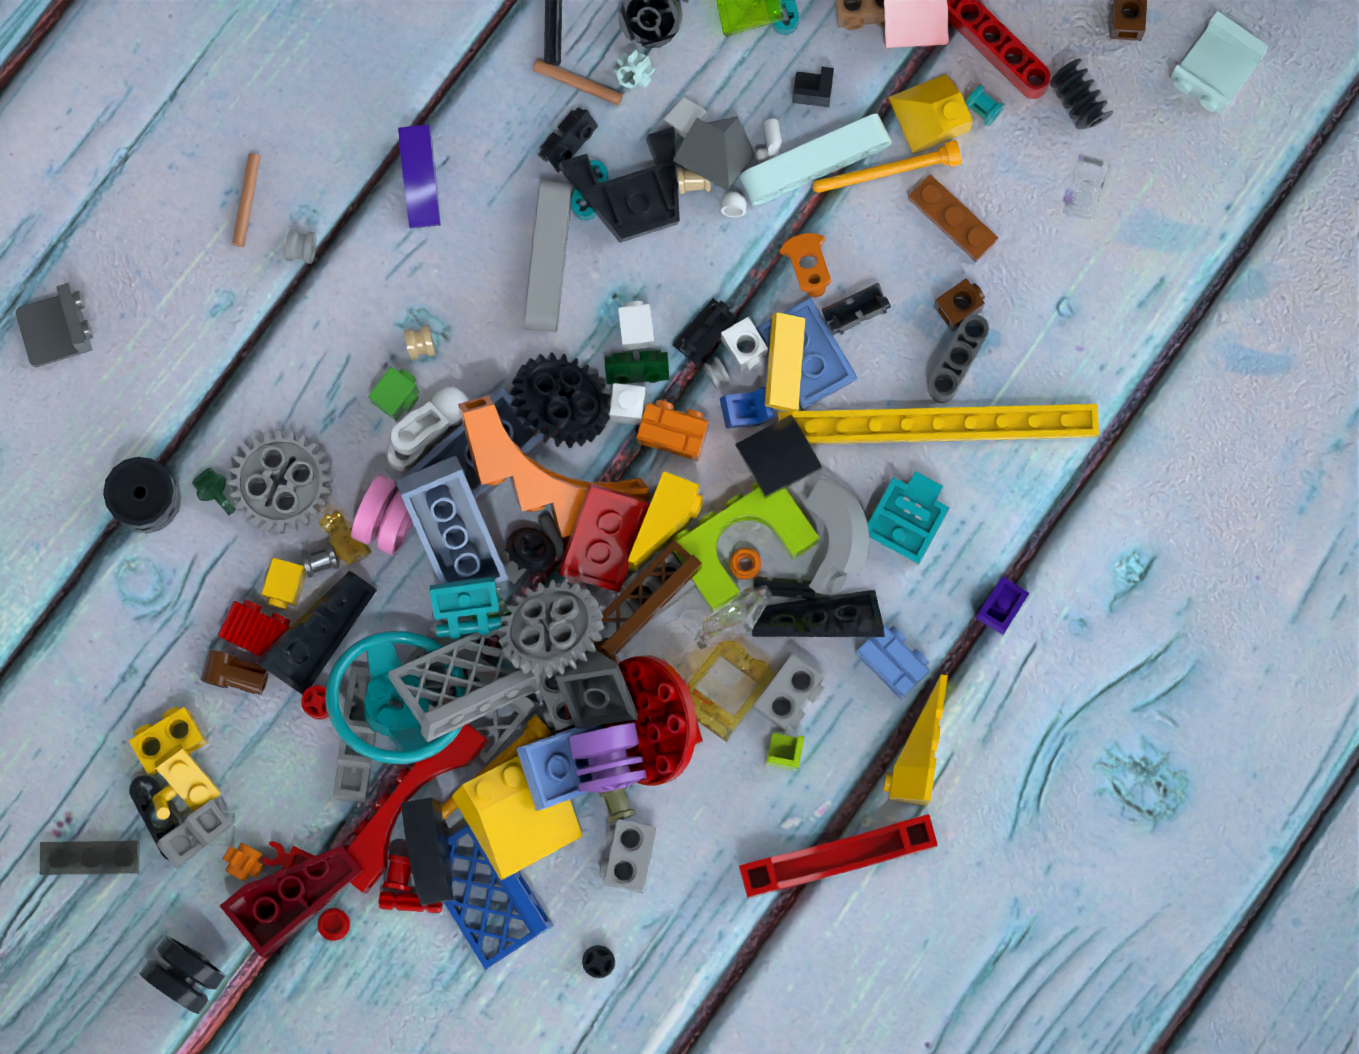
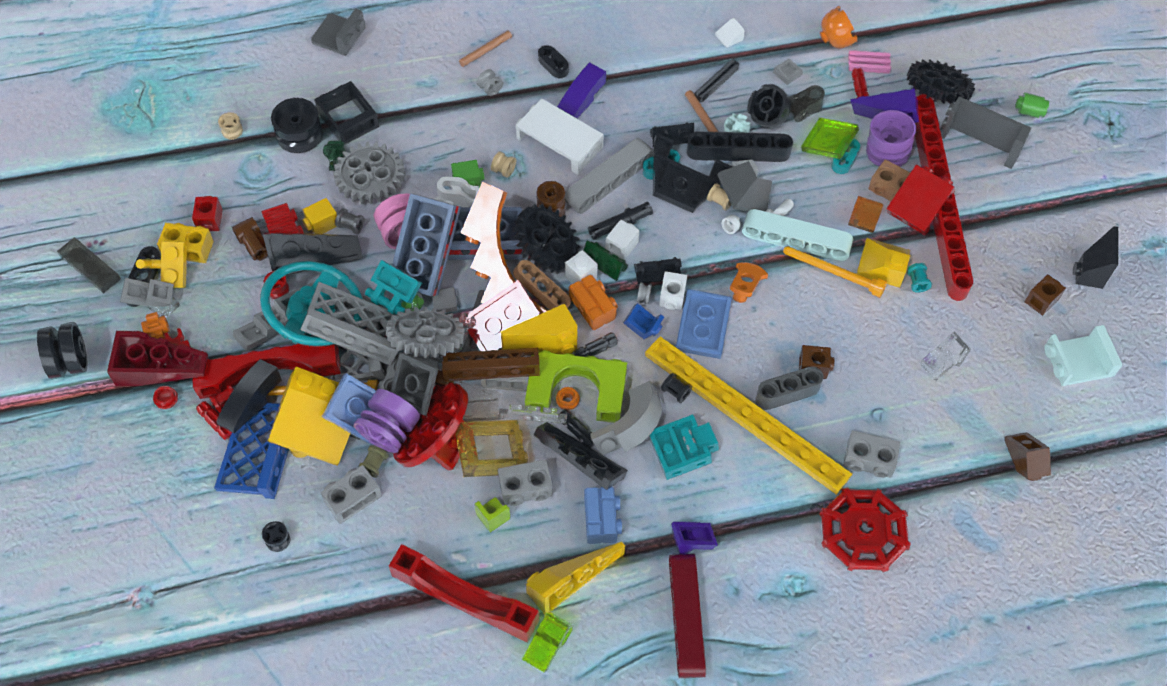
camera: 35 degrees right, 20 degrees down
(55, 554) = (230, 125): none -> tan wheel
(163, 696) = (207, 213): none -> red brick
(208, 433) = (355, 126): none -> black window
(341, 159) = (551, 63): none -> black beam
(345, 547) = (367, 224): clear yellow plate -> none
(445, 249) = (561, 133): none -> white panel
(517, 345) = (553, 195): none -> reddish brown wheel
(530, 539) = (465, 295): black gear -> none
(611, 302) = (628, 216): none -> black pin
(618, 453) = (533, 271): none -> medium nougat beam
(663, 81) = (739, 146): none -> black beam
(720, 479) = (597, 346): none -> black axle
(778, 456) = (637, 355): black slope -> none
(785, 362) = (686, 312): yellow tile -> none
(813, 88) = (828, 205): black panel -> none
(845, 456) = (676, 388): none -> black bush
(855, 309) = (752, 320): black hinge -> none
(865, 70) = (865, 214): none -> clear orange panel
(953, 218) = (851, 320): dark orange plate -> none
(956, 831) = (546, 642): none -> clear neon green plate
(1060, 690) = (687, 616): none -> dark red beam
(1078, 96) = (981, 311): black piece -> none
(1094, 357) = (872, 449): none -> light grey brick
(1153, 470) = (861, 542): none -> red plate
(1249, 232) = (1029, 456): none -> slope

